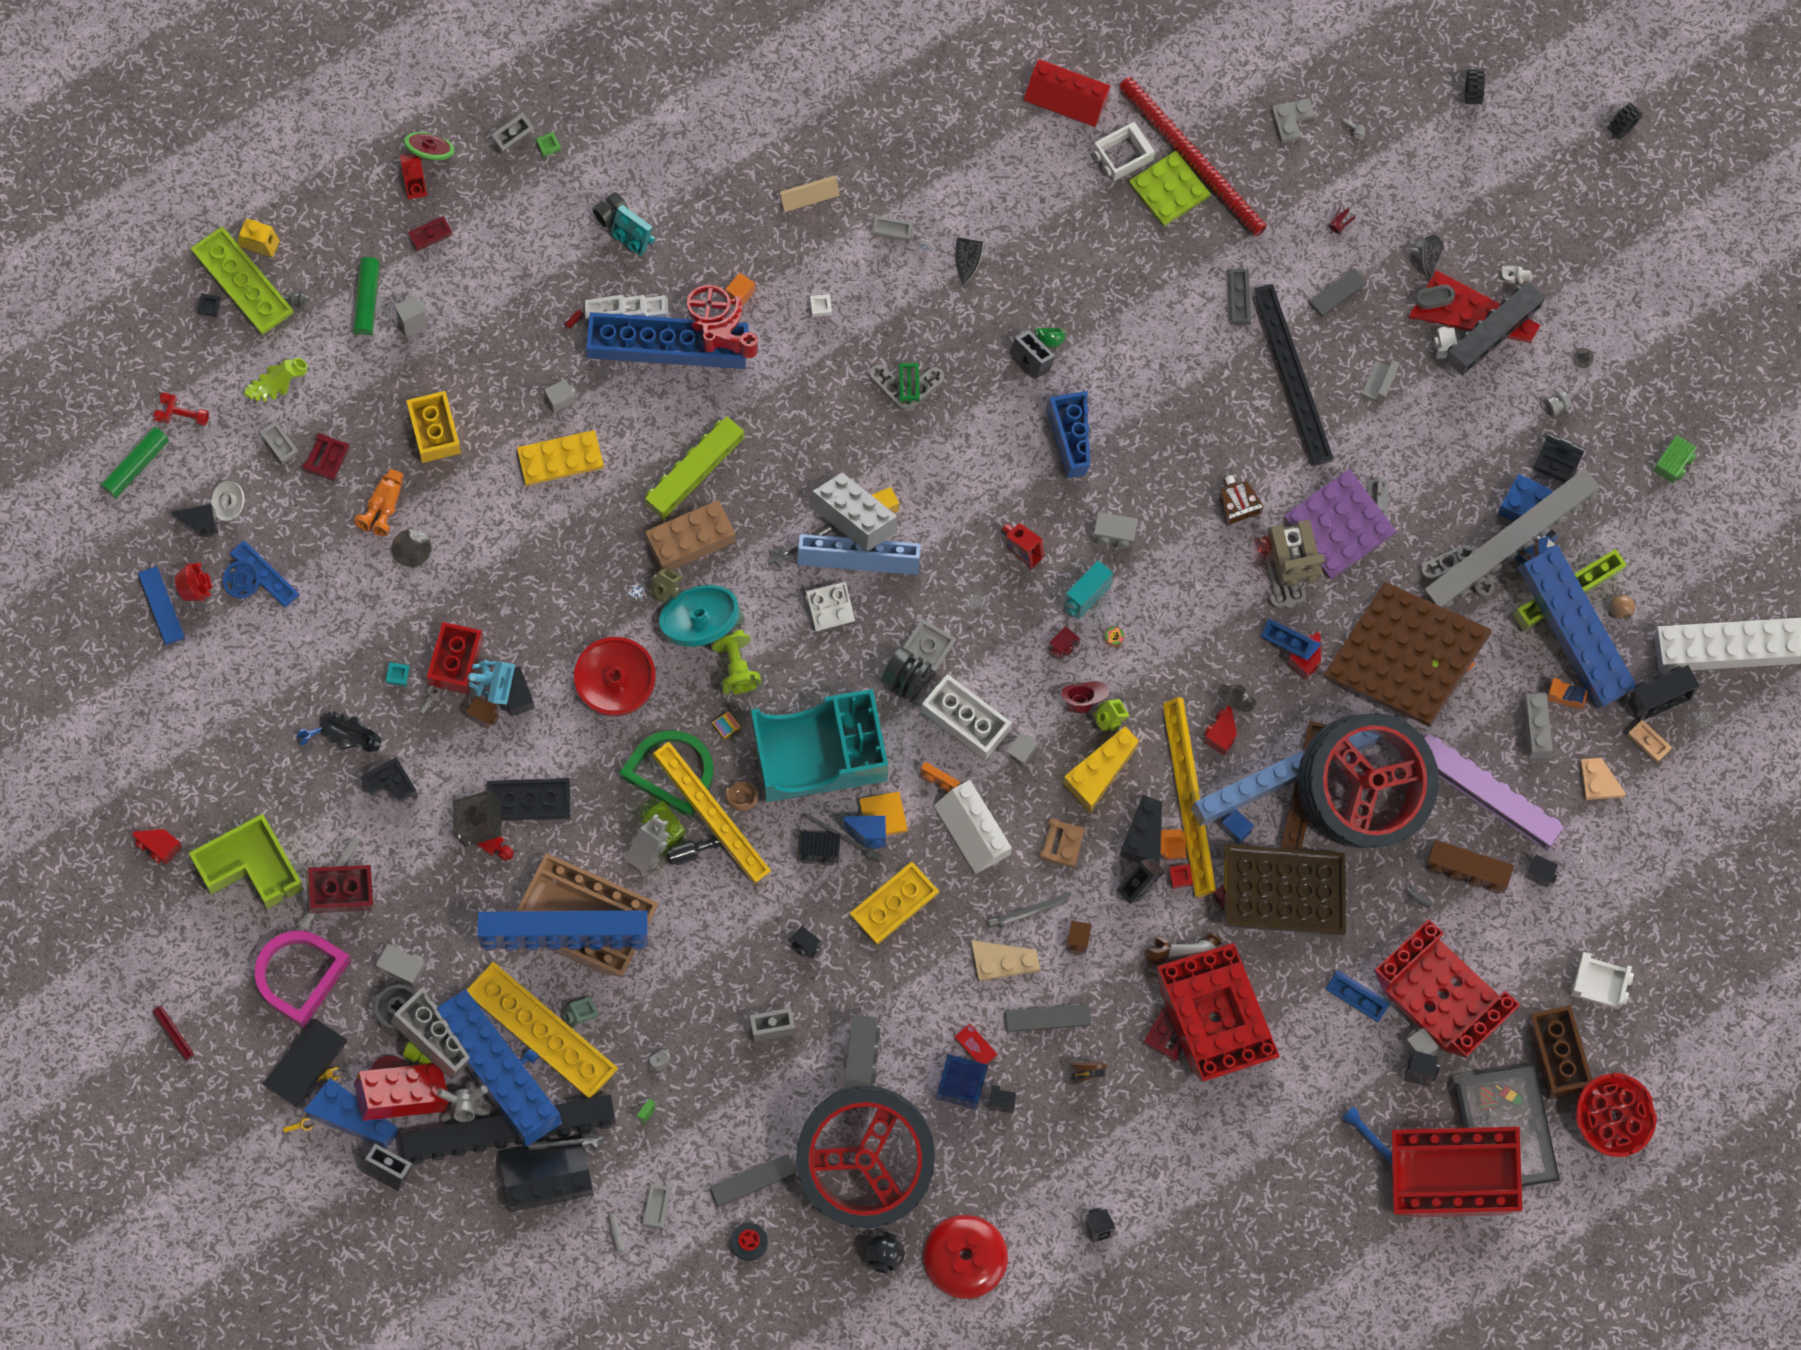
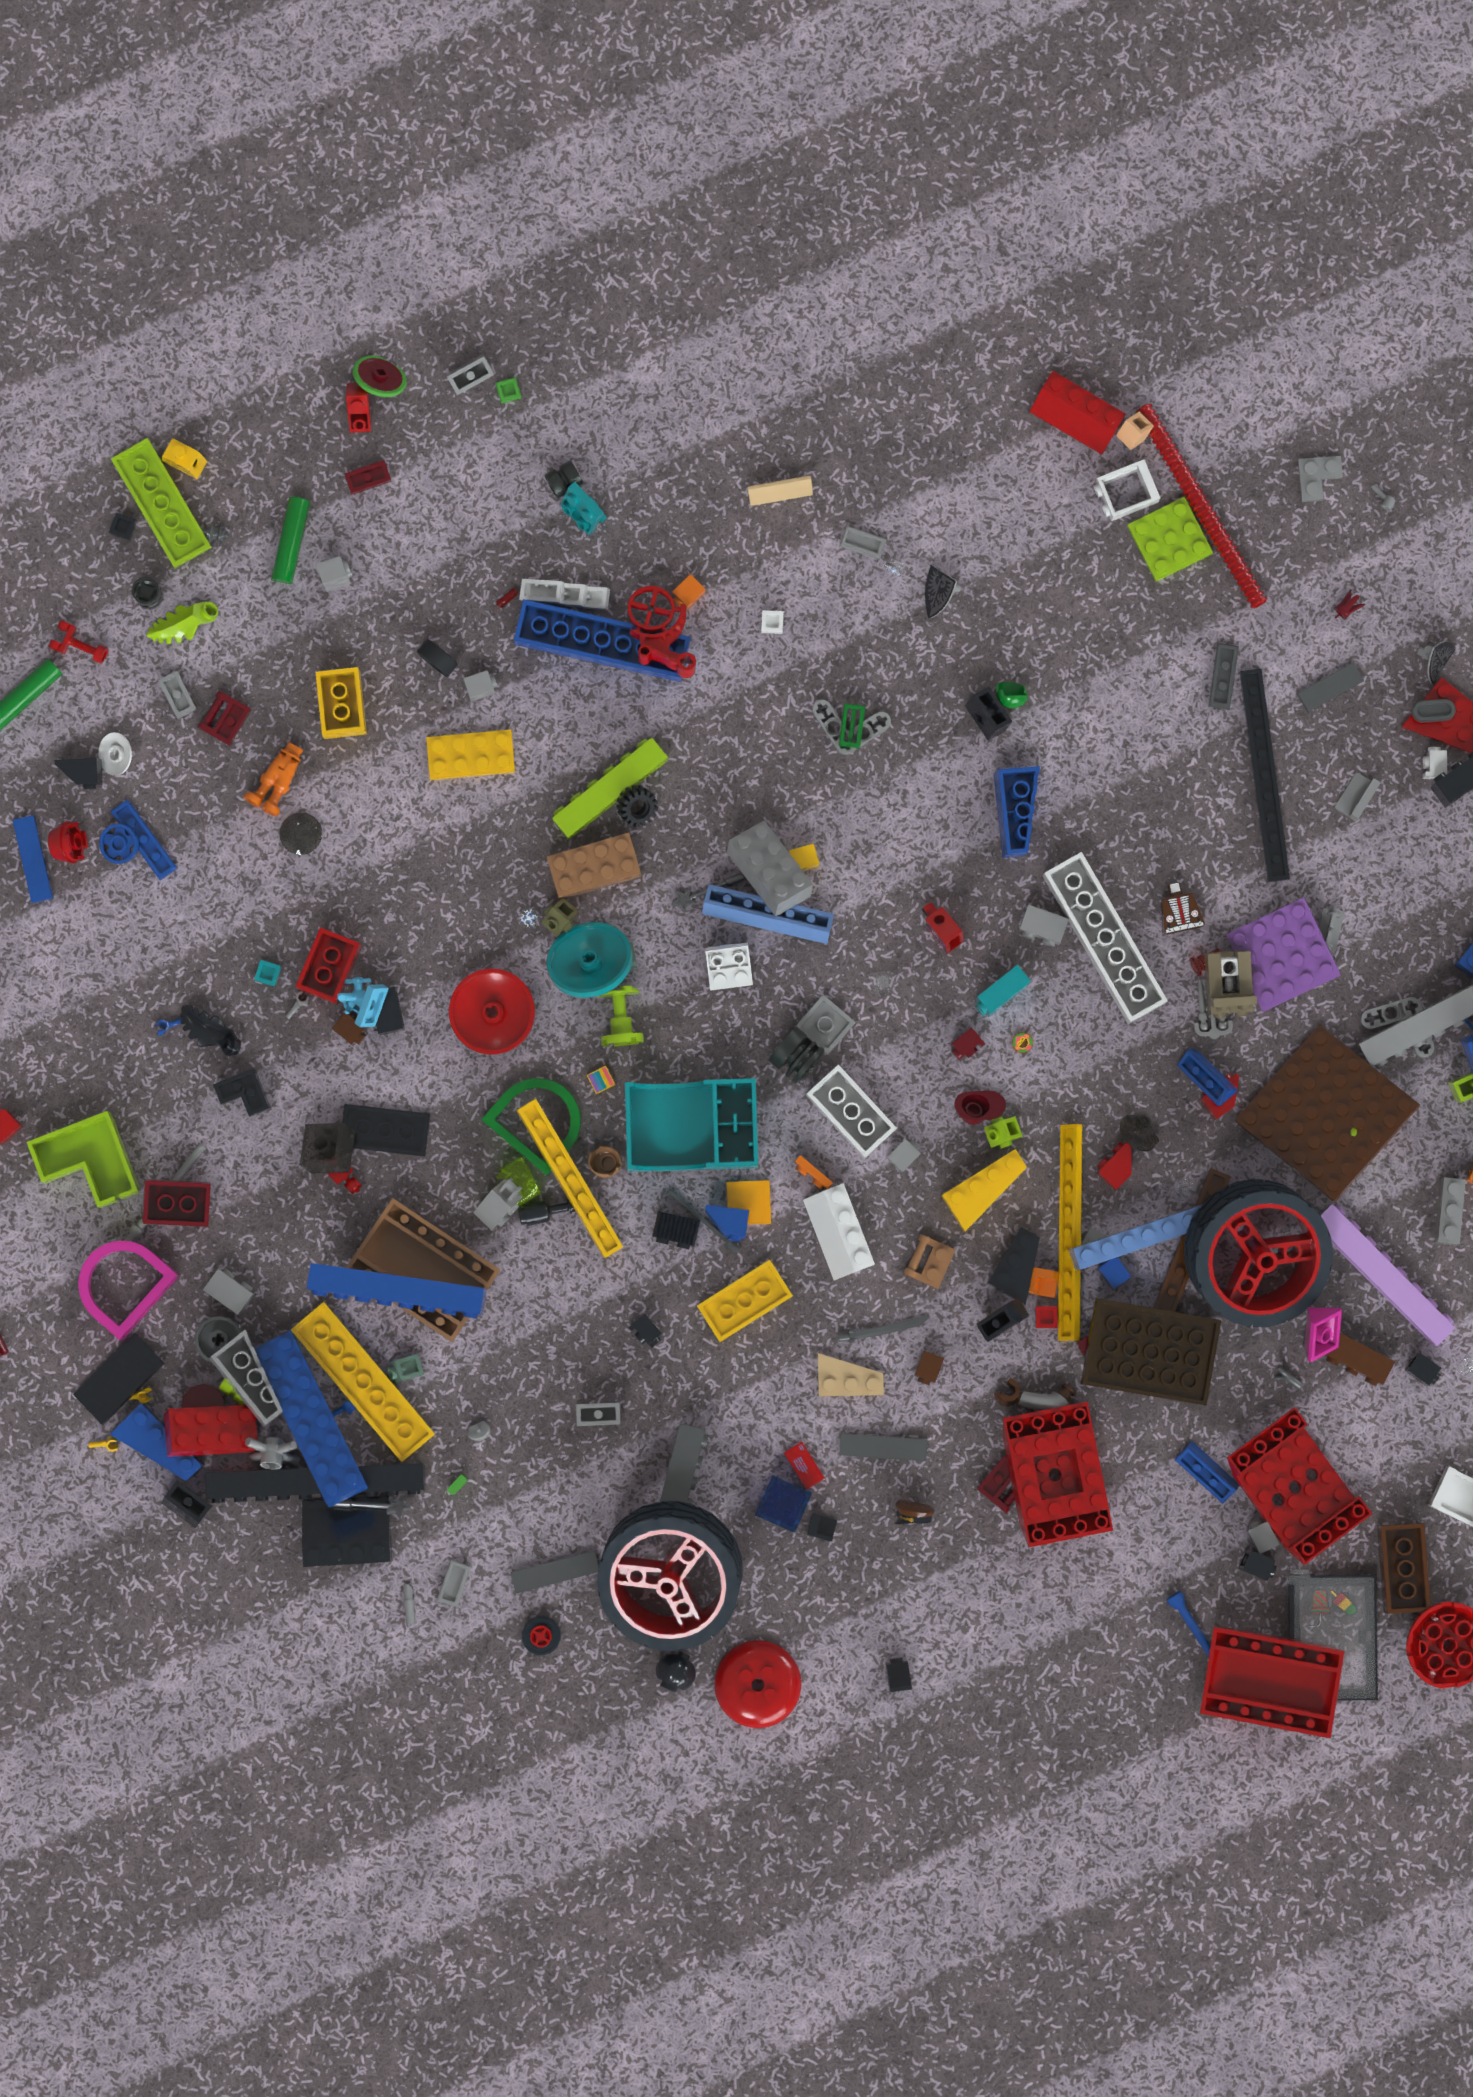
camera: 15 degrees right, 15 degrees up
(239, 357) = (147, 593): none -> pearl dark grey wheel
(517, 375) = (437, 658): none -> black tyre
(711, 477) = (629, 798): none -> black tyre
(1121, 100) = (1134, 430): none -> light nougat brick
(1174, 532) = (1104, 938): none -> white brick
(1441, 843) = (1322, 1331): none -> dark pink slope

